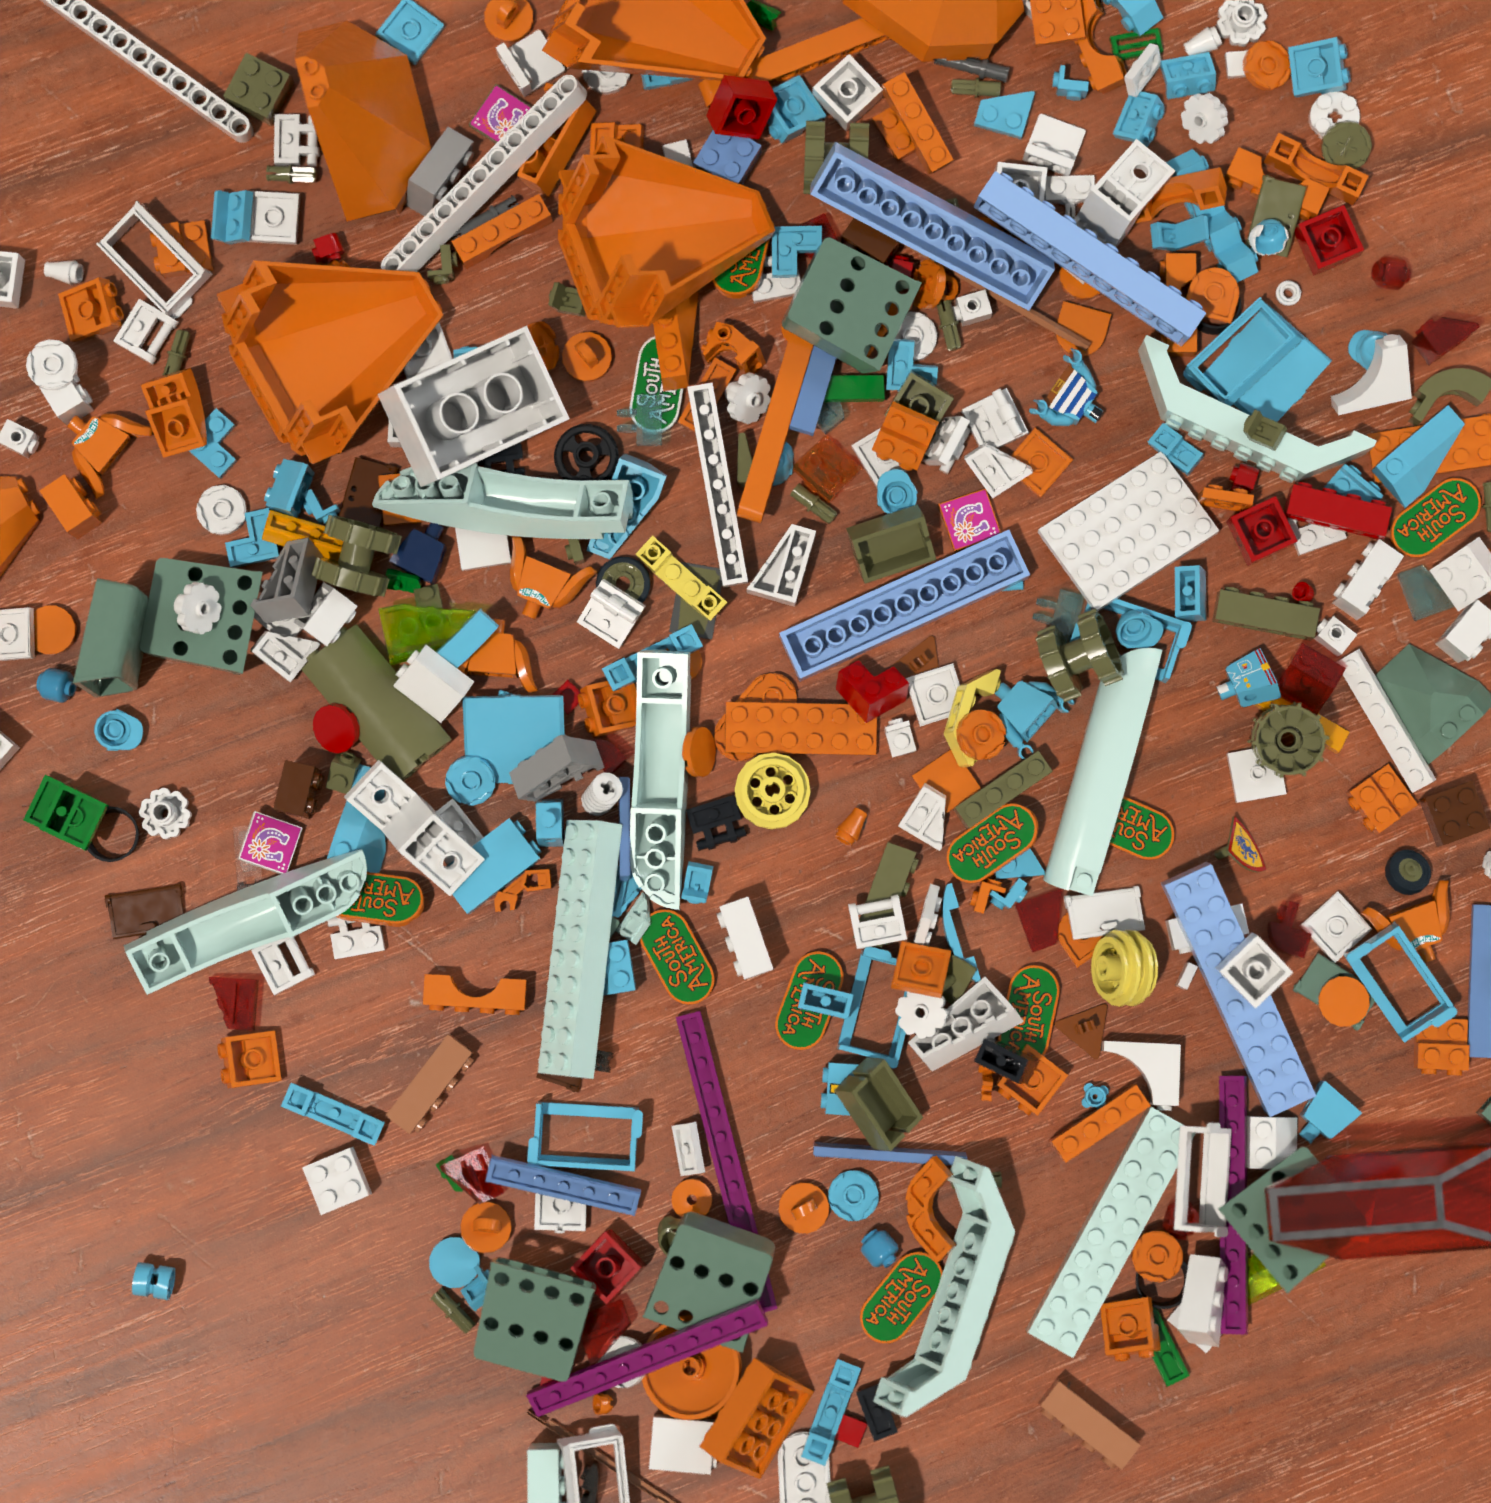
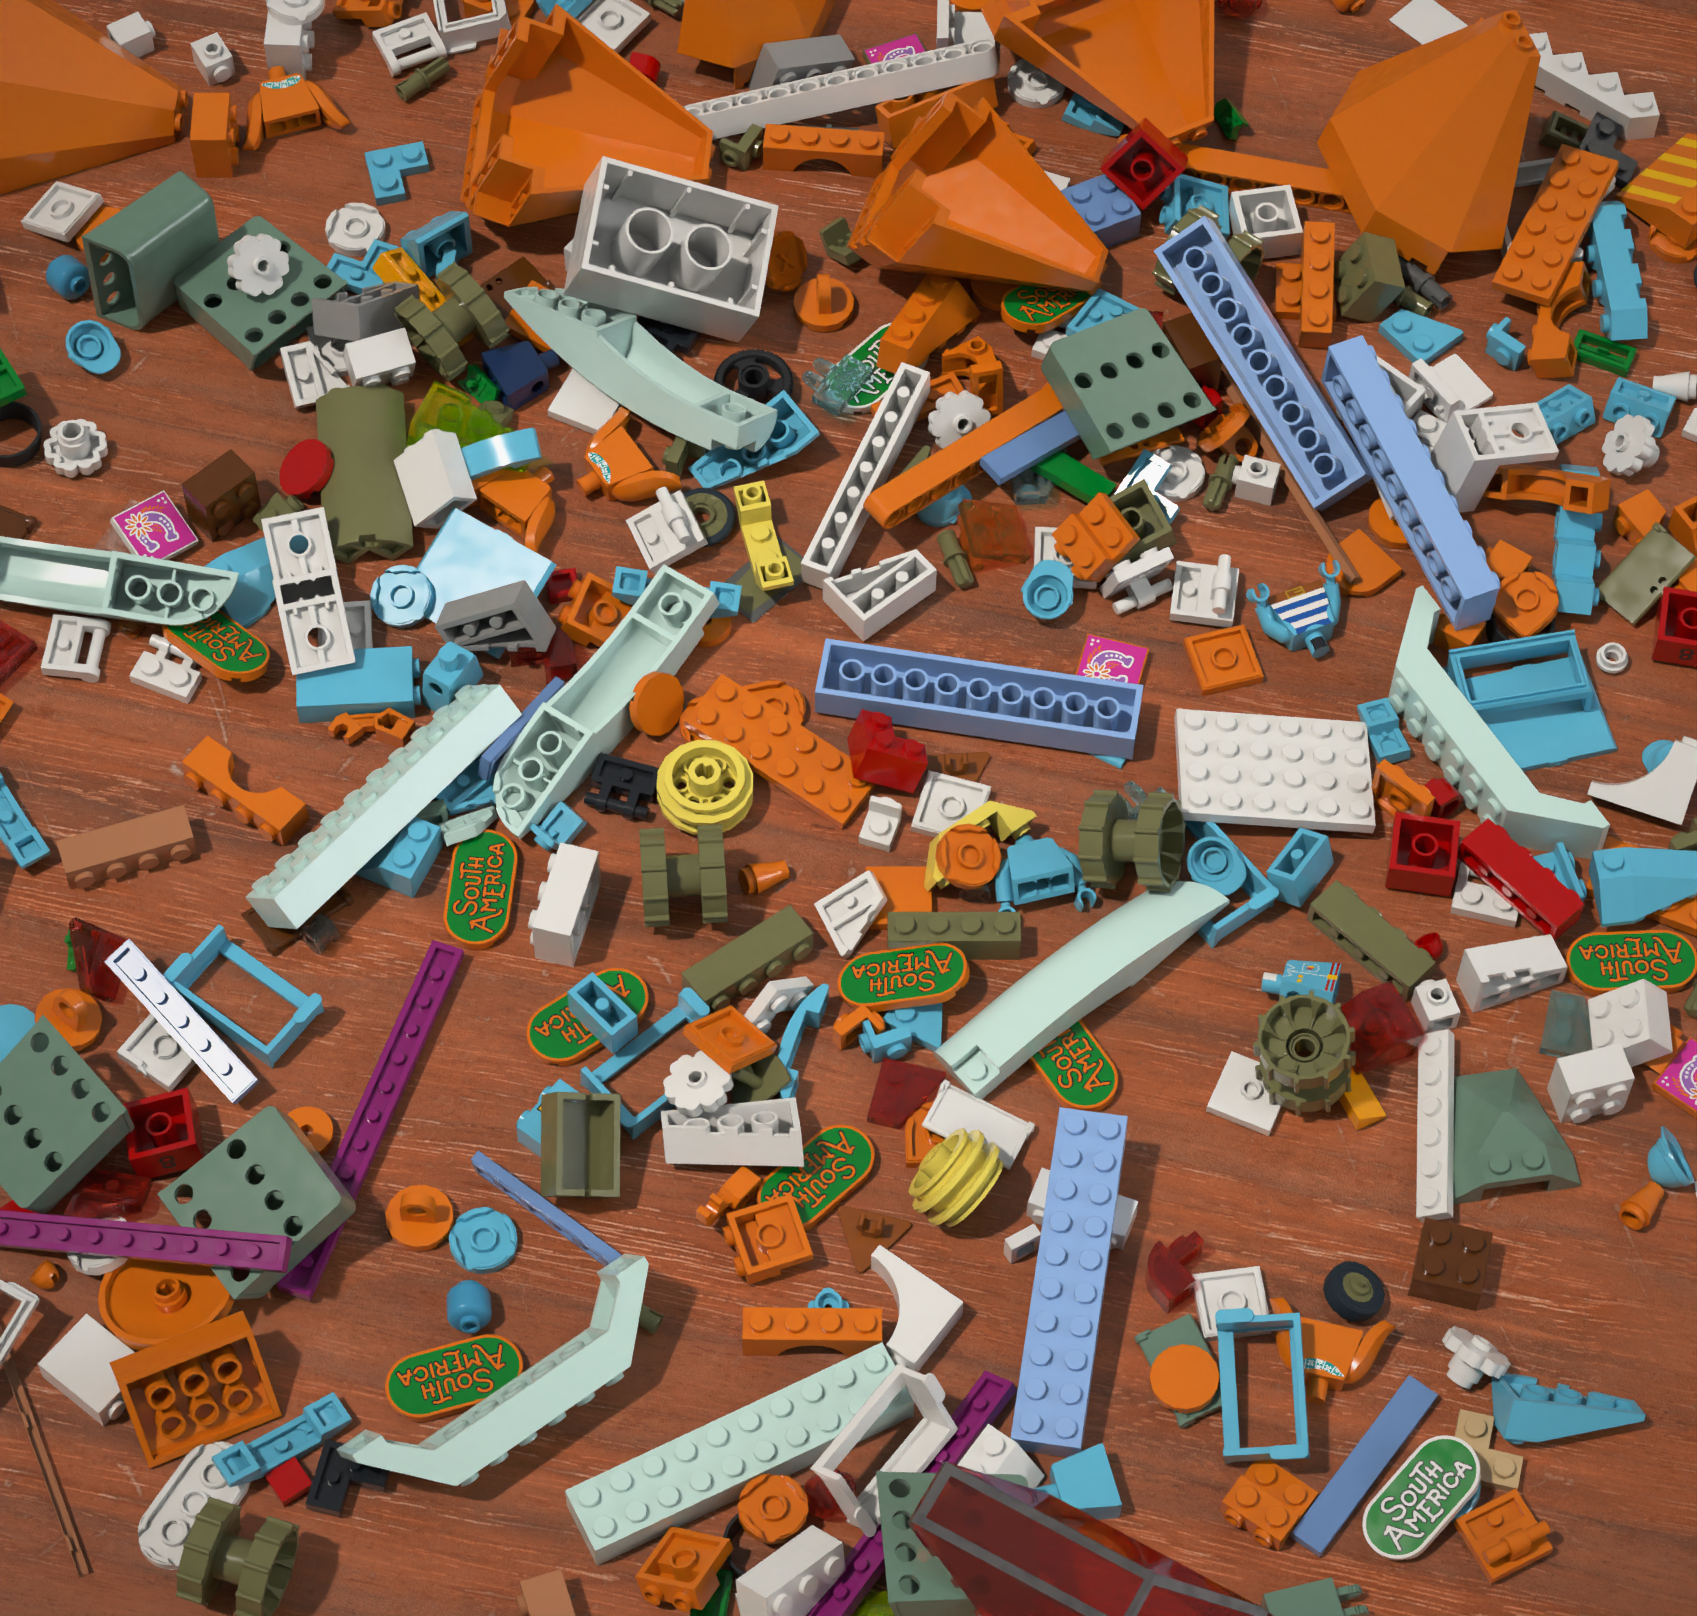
camera: 30 degrees right, 25 degrees down
(175, 412) = (380, 116): orange slope -> none
(602, 794) = (526, 676): white piece -> none
(688, 1148) = (342, 1077): white plate -> none
(809, 871) = (683, 875): none -> olive piece
(879, 930) = (713, 976): white plate -> none
(891, 543) = (1007, 630): olive piece -> none
(920, 1211) = (537, 1309): orange plate -> none
(949, 96) = (1368, 277): none -> olive brick
(996, 469) = (1172, 632): white wing -> none
(1006, 1060) = (753, 1183): black brick -> none
(1142, 70) = (1592, 369): white plate -> none
(1179, 235) = (1517, 532): medium azure bracket -> none
(1242, 848) = (1180, 1151): shield -> none
(1254, 970) = (1097, 1244): white brick -> none
(1264, 430) = (1485, 735): olive bracket -> none
(1268, 237) = (1622, 583): medium azure hair -> none
(1381, 799) = (1374, 1203): orange plate -> none

